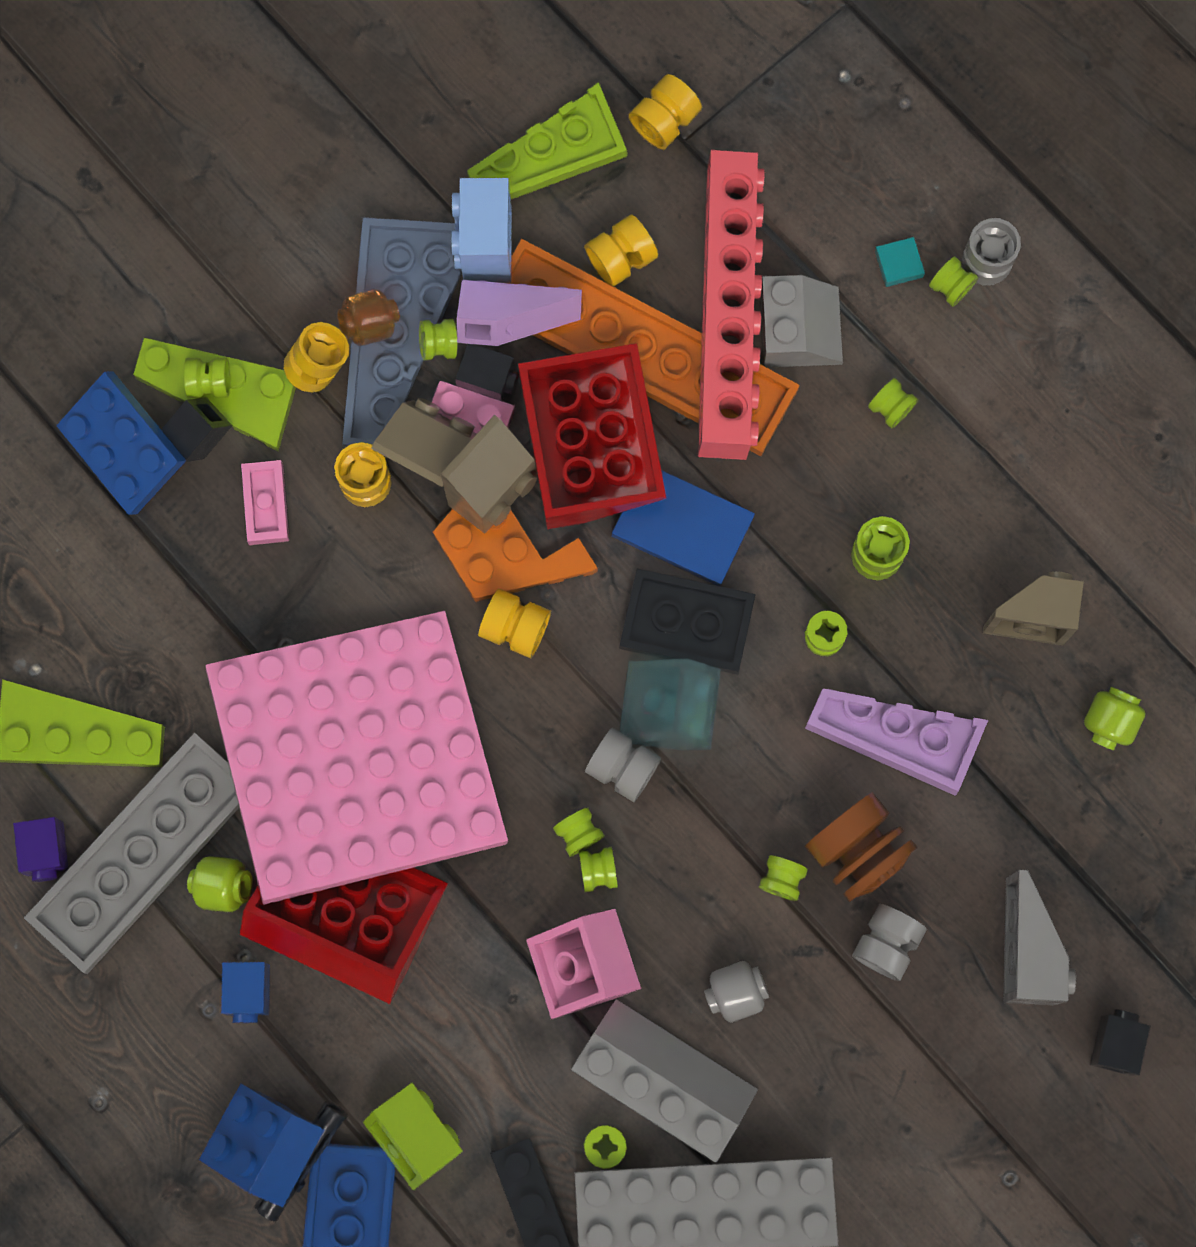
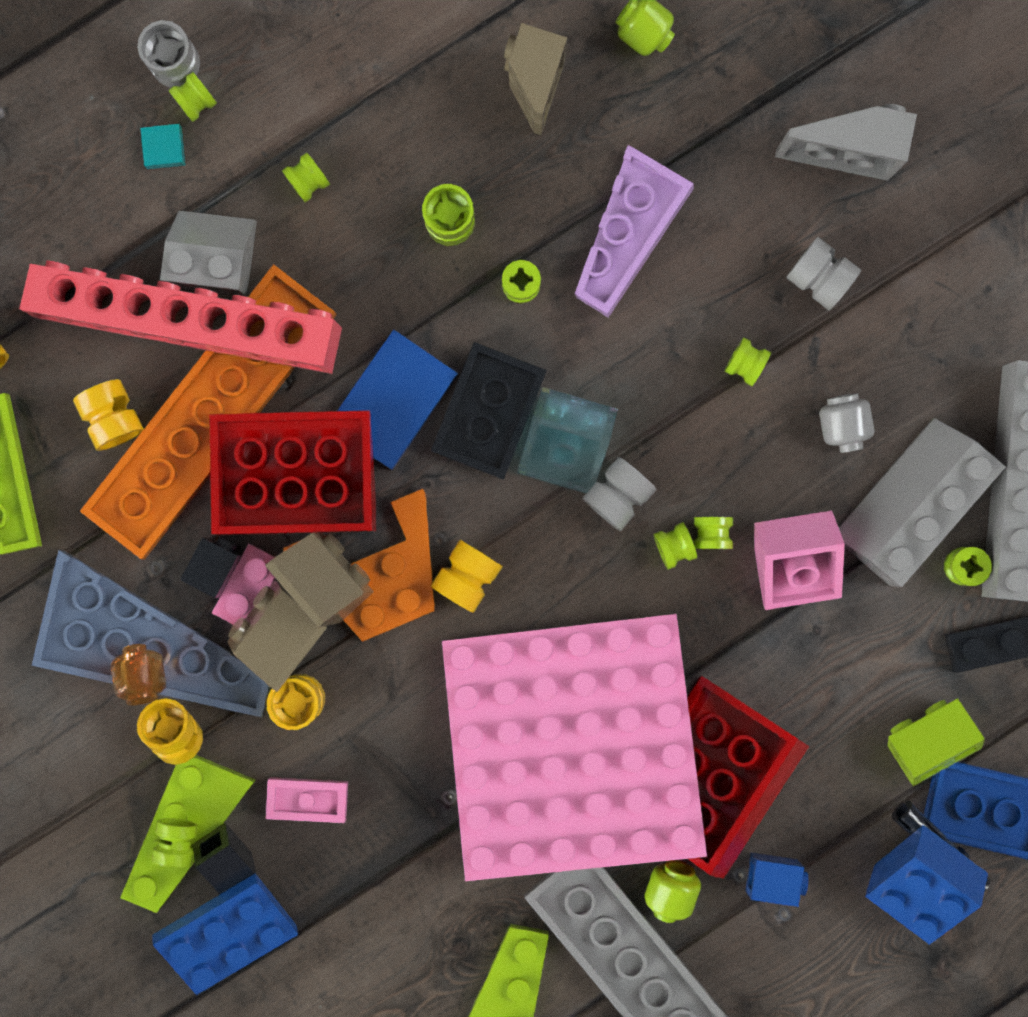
camera: 80 degrees left, 10 degrees up
(438, 339) = (171, 609): lime wheel -> none
(483, 229) = (62, 545): light blue brick -> none
(507, 312) = (156, 535): lavender slope -> none
(861, 847) = (742, 279): dark orange wheel -> none
(1120, 1043) = (946, 79): black brick -> none

